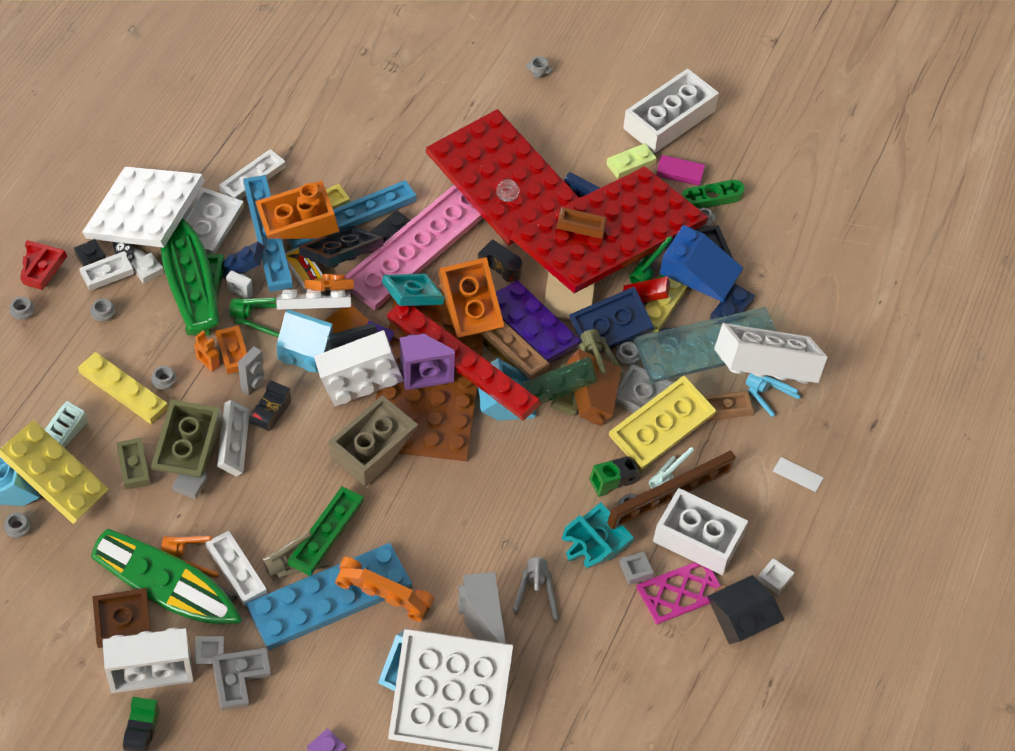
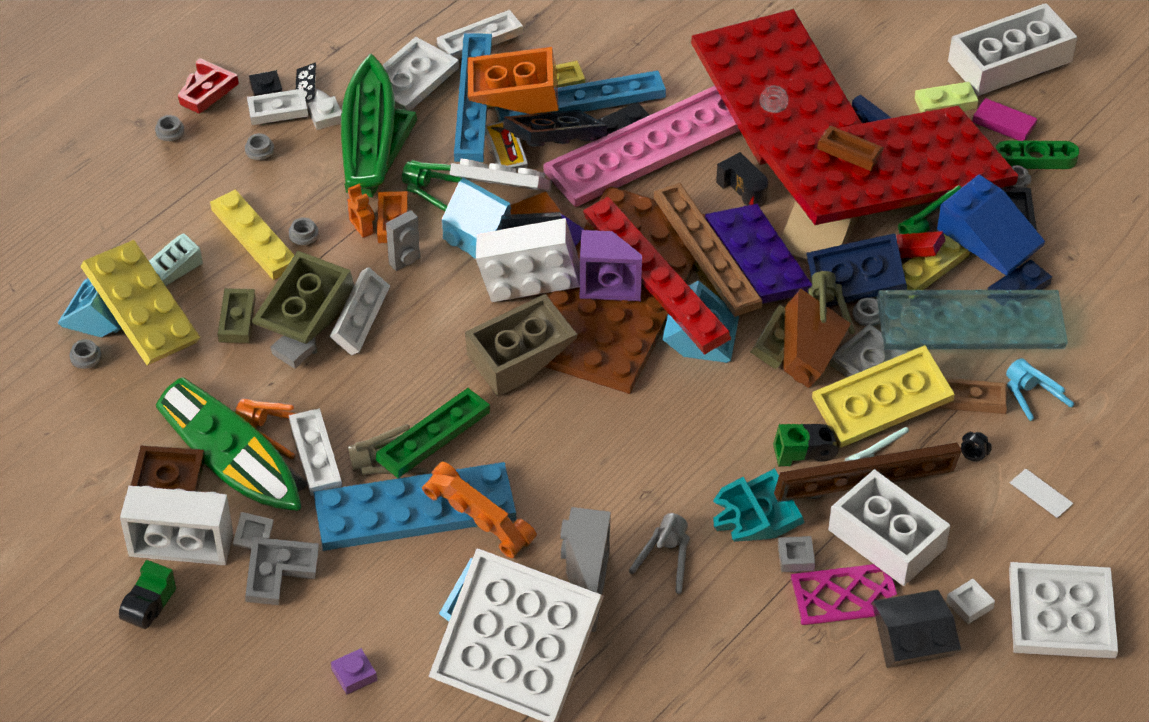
camera: 20 degrees right, 5 degrees down
(144, 206) = (342, 44): white plate -> none
(239, 285) = (423, 147): white plate -> none
(244, 260) = (435, 122): dark blue plate -> none
(271, 406) = (415, 286): black leg -> none
(309, 194) = (530, 58): orange plate -> none
(329, 281) = (528, 160): orange plate -> none
(413, 289) = (623, 188): teal plate -> none
(471, 297) = (688, 206): orange slope -> none
(562, 380) = (768, 322): clear green plate -> none
(741, 447) = (971, 450): none -> black plate
(770, 353) = (1043, 341): white brick -> none
(843, 567) = (1062, 610): none -> white plate

